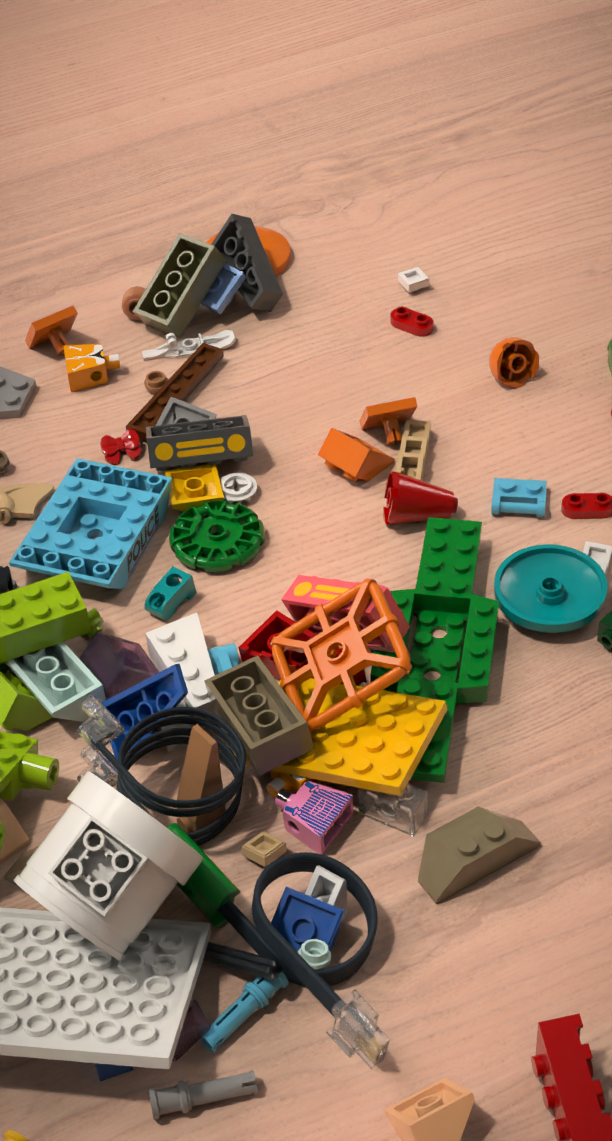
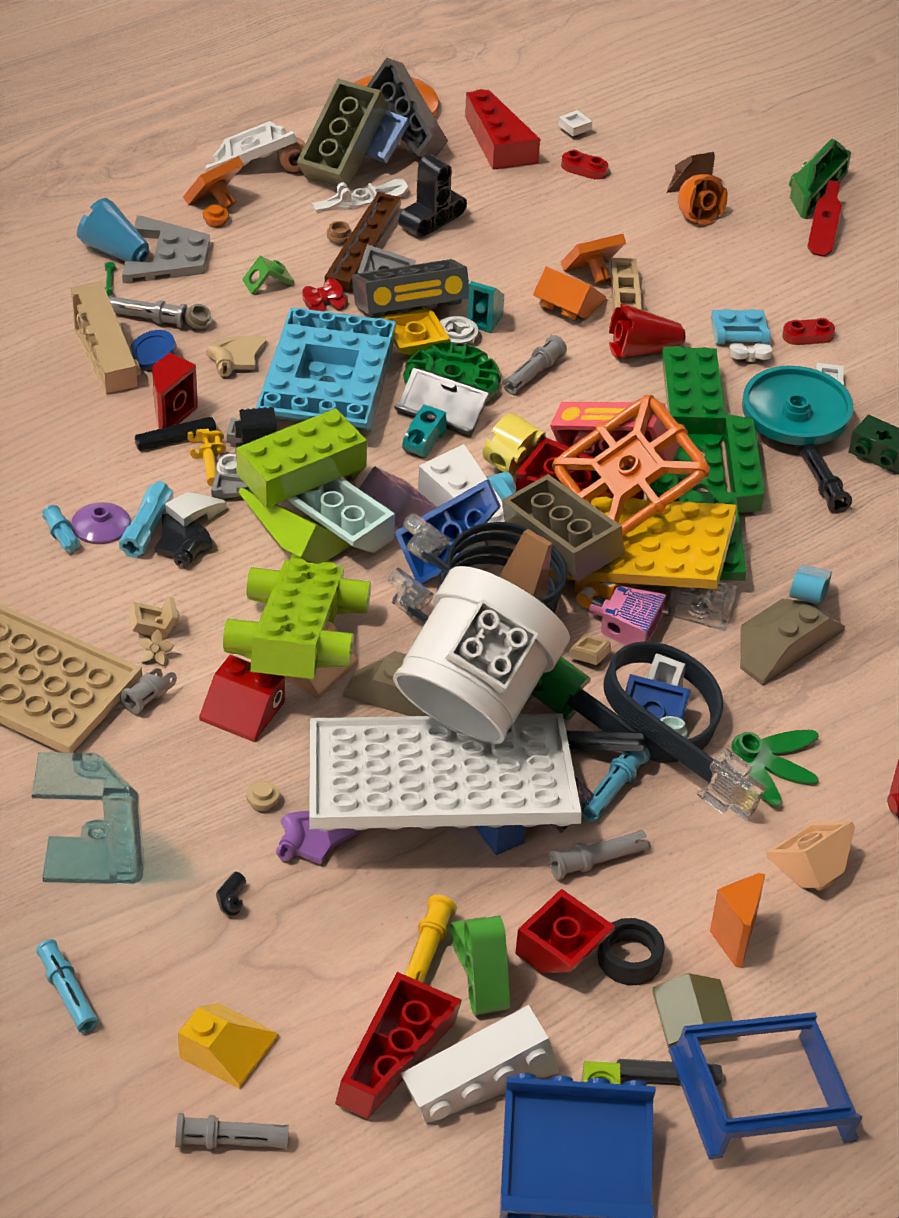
camera: 15 degrees left, 0 degrees up
(47, 360) = (215, 215): none -> orange plate
(77, 416) = (266, 268): none -> bright green bracket
(88, 365) = (262, 218): light orange torso -> none
(100, 292) = (253, 144): none -> white wing
(189, 553) = (461, 405): none -> door
(245, 612) = (512, 443): none -> light yellow brick
(251, 355) = (435, 200): none -> black beam
(266, 465) = (485, 306): none -> teal slope
(308, 522) = (541, 358): none -> light grey pin
(337, 287) = (500, 132): none -> red wedge
(412, 993) = (762, 756): none -> green plant
(508, 794) = (810, 584): none -> medium azure beam
(511, 523) = (759, 351): none -> white piece
(514, 327) = (689, 167): none -> reddish brown slope
(564, 679) = (829, 485): none -> black pin

